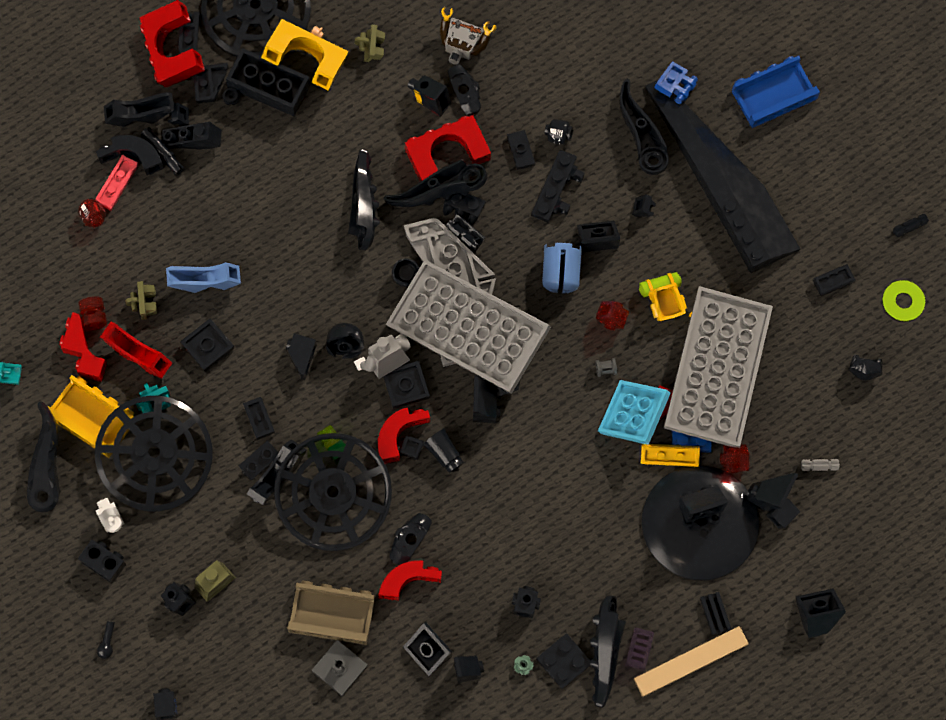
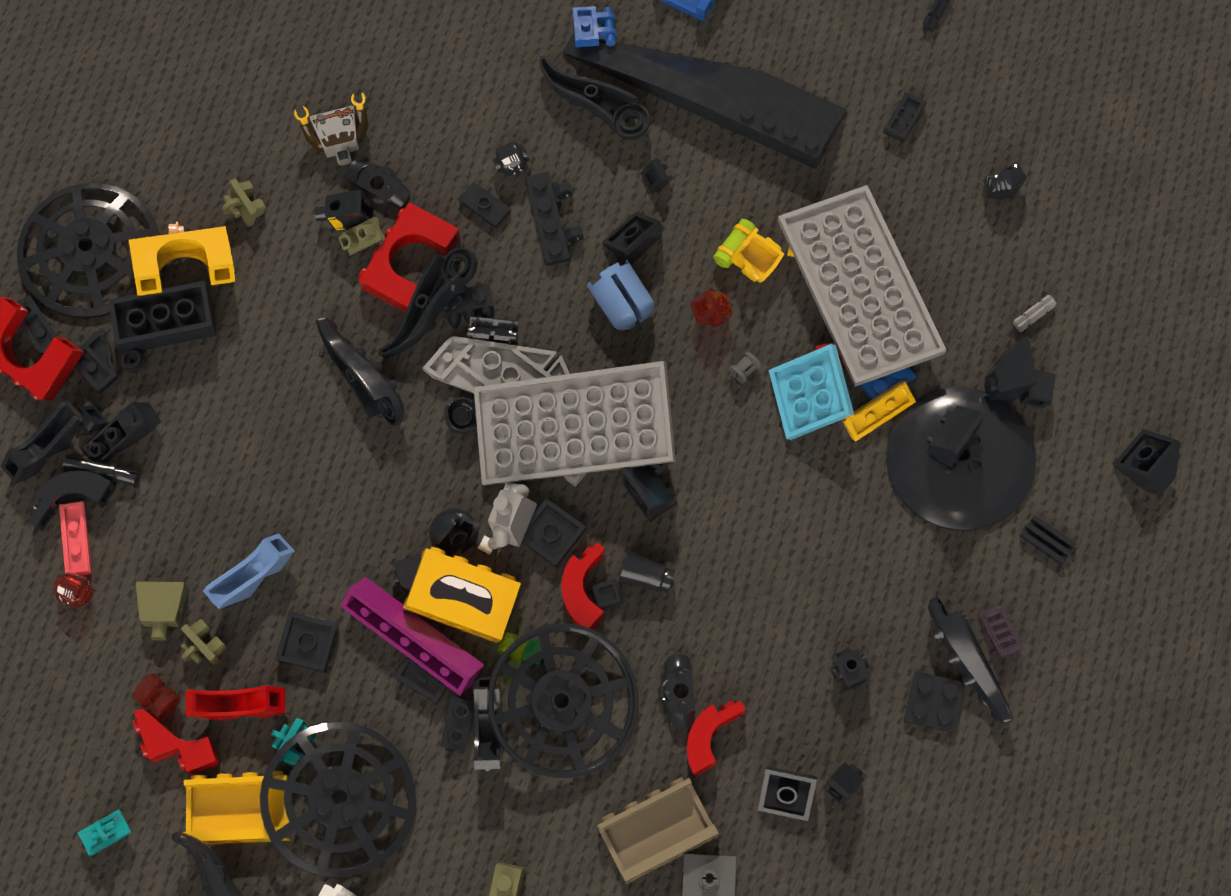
camera: 30 degrees left, 0 degrees up
(136, 260) = (161, 605): none -> olive torso
(272, 386) = (412, 635): none -> magenta brick
(321, 382) = (462, 595): none -> yellow panel
(427, 116) = (362, 236): none -> olive hips
(518, 665) = (894, 743): sand green plate -> none
(691, 661) = (1061, 607): tan tile -> none
(735, 458) = (948, 367): clear red brick -> none
(894, 310) = (984, 106): lime gear -> none

